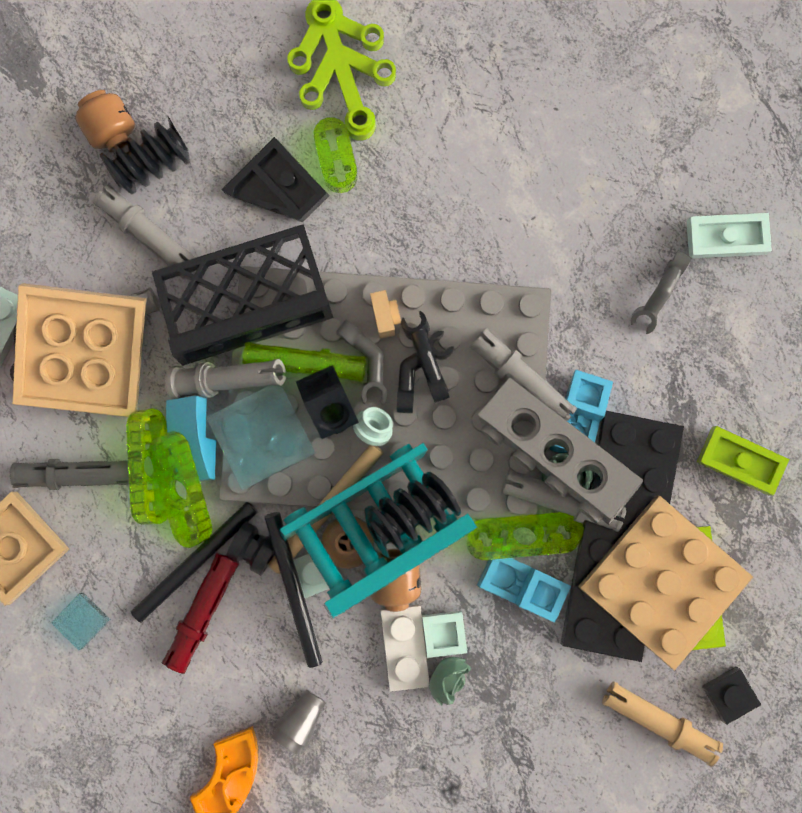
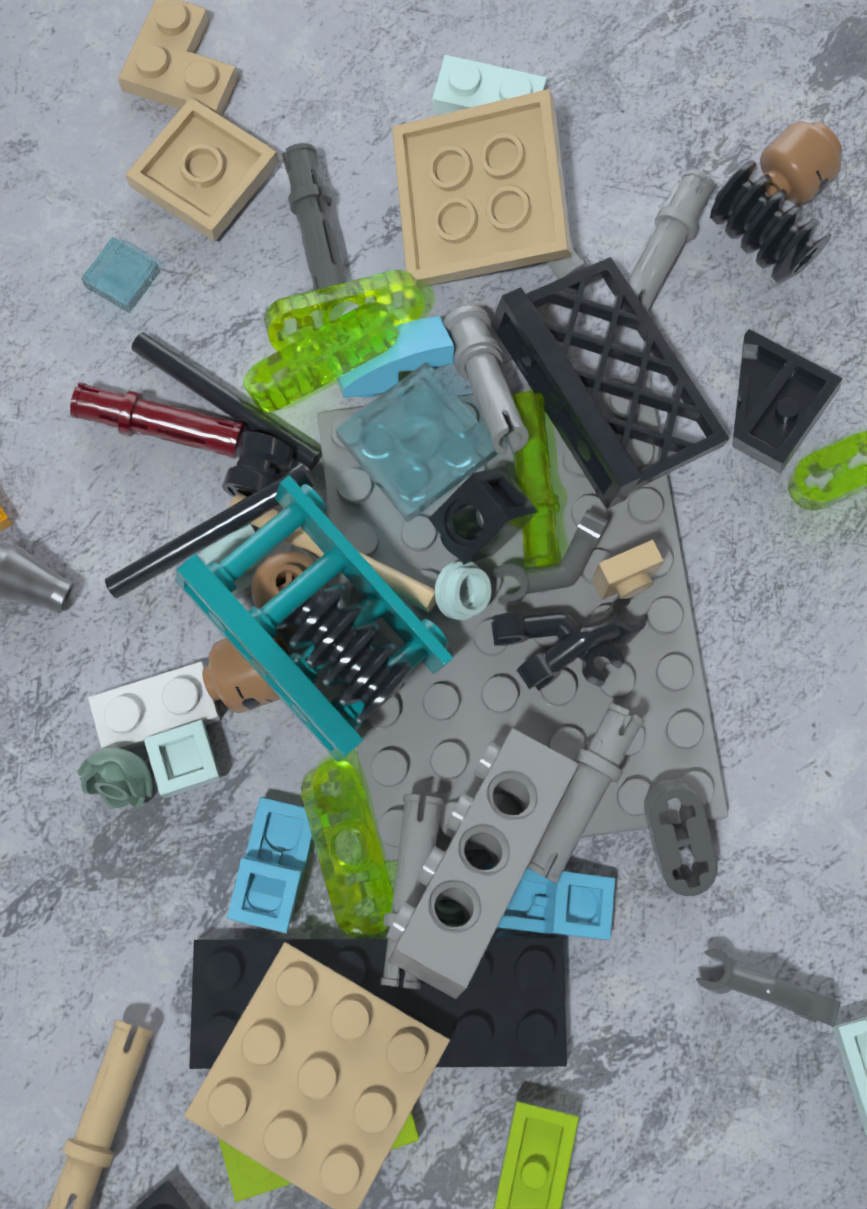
camera: 75 degrees right, 10 degrees down
(560, 314) = (667, 840): none -> dark grey beam

